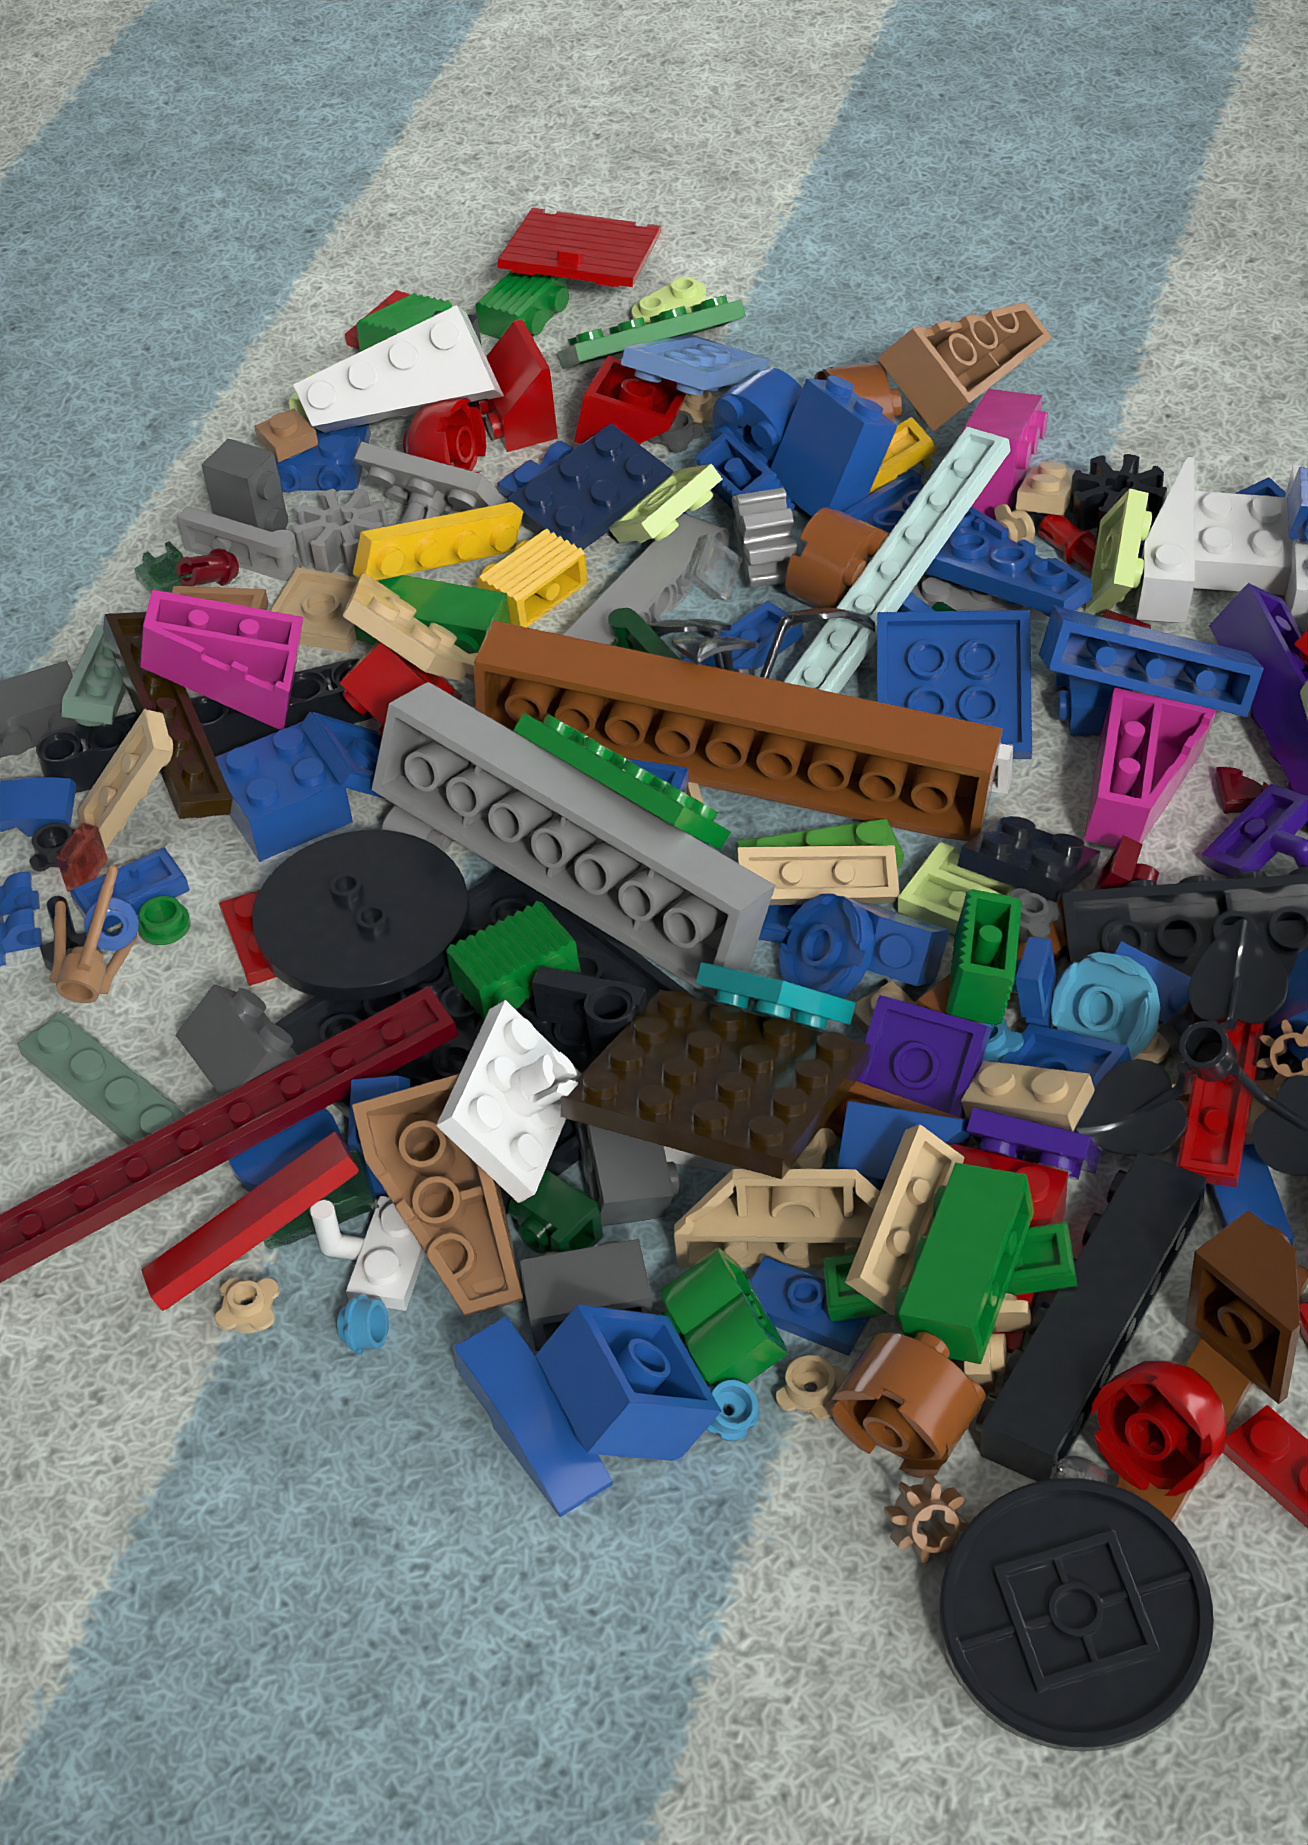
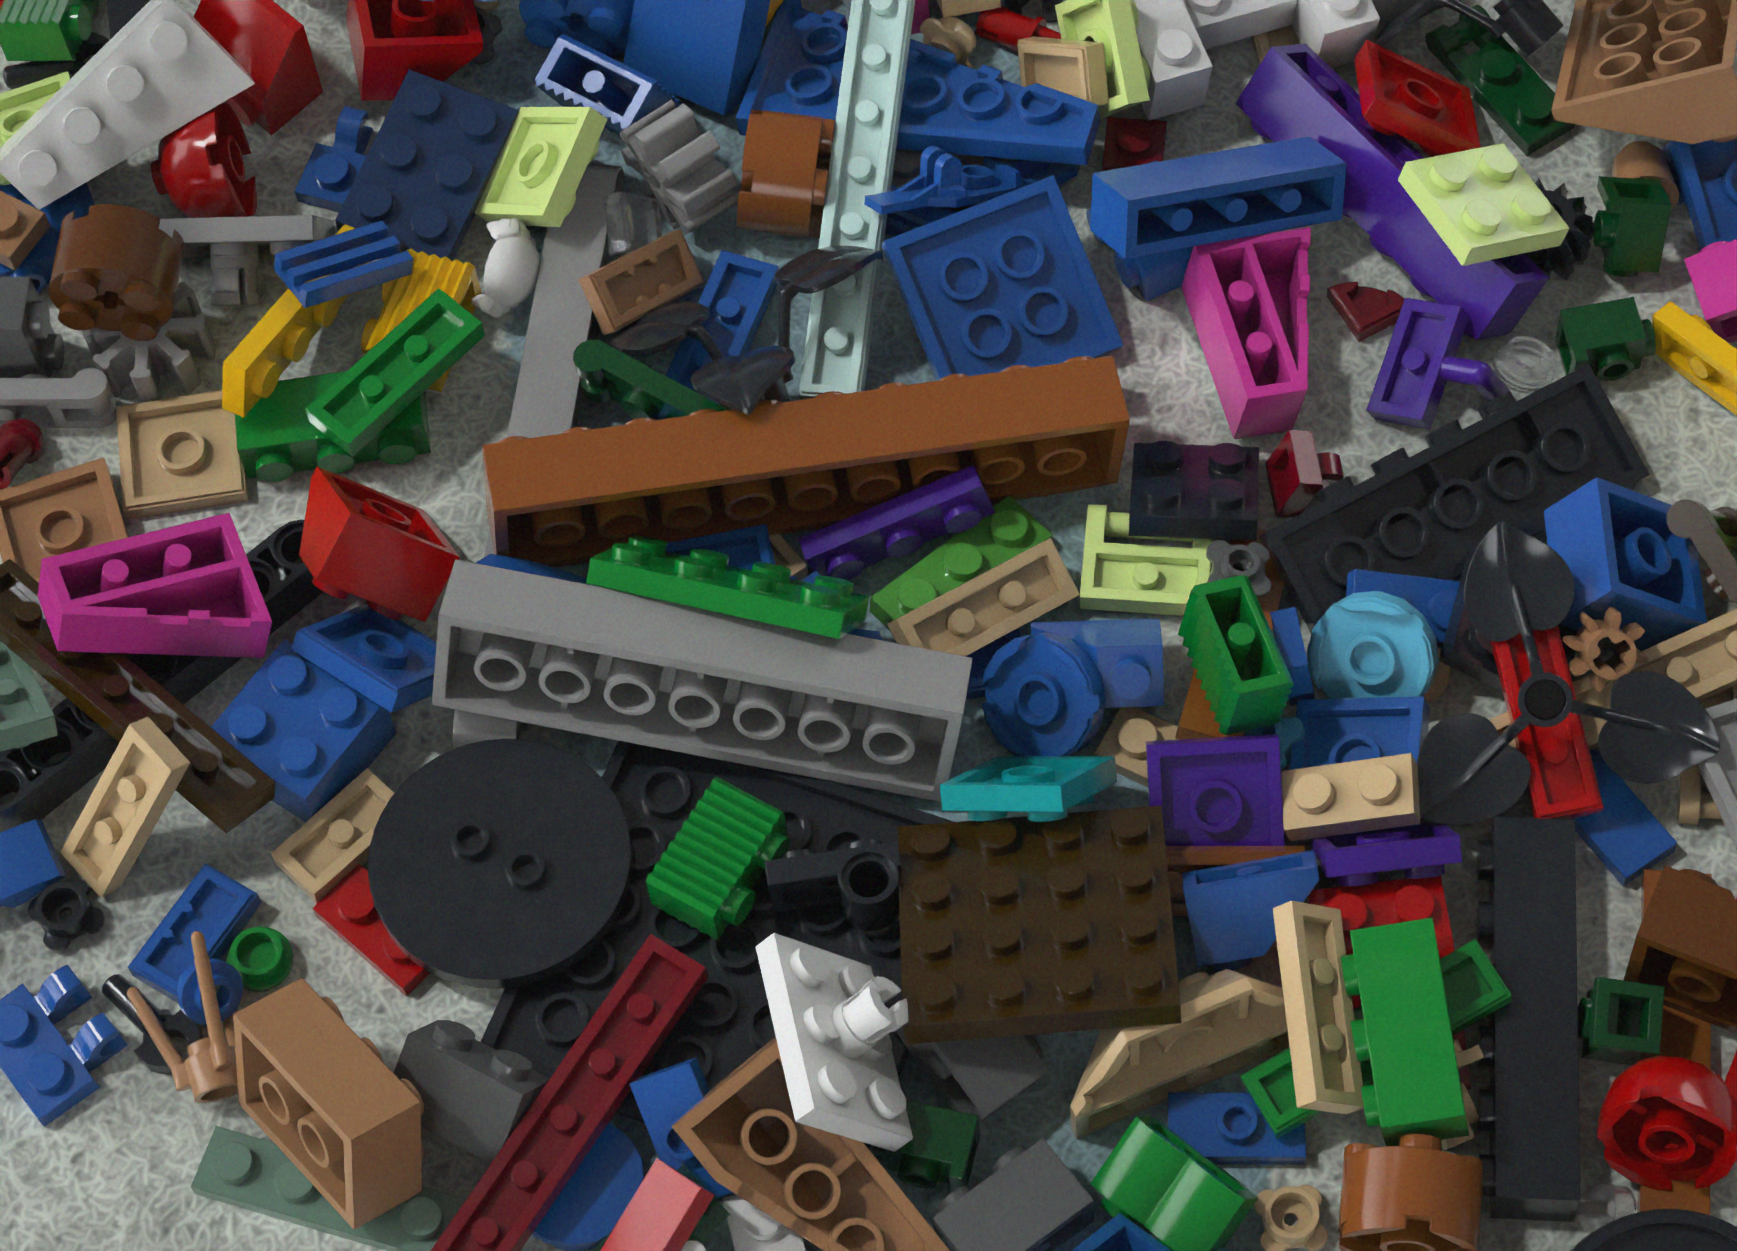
camera: 25 degrees left, 15 degrees up
(82, 857) = (114, 918): clear red tile -> none
(134, 1010) = (329, 1102): none -> medium nougat brick
(249, 866) = (334, 837): none -> tan plate
(331, 466) = (116, 271): none -> reddish brown brick
(392, 623) = (357, 485): tan wing -> none
(484, 587) = (395, 372): none -> green plate
(489, 515) = (338, 257): none -> blue tile
(605, 560) = (510, 268): none -> white hair
(696, 597) = (641, 281): none -> medium nougat plate
(788, 802) = (898, 525): none -> dark purple plate
(947, 595) = (949, 184): none -> blue piece
(1088, 555) = (1065, 66): none -> tan tile
(1164, 1330) = (1620, 1021): none -> dark green brick

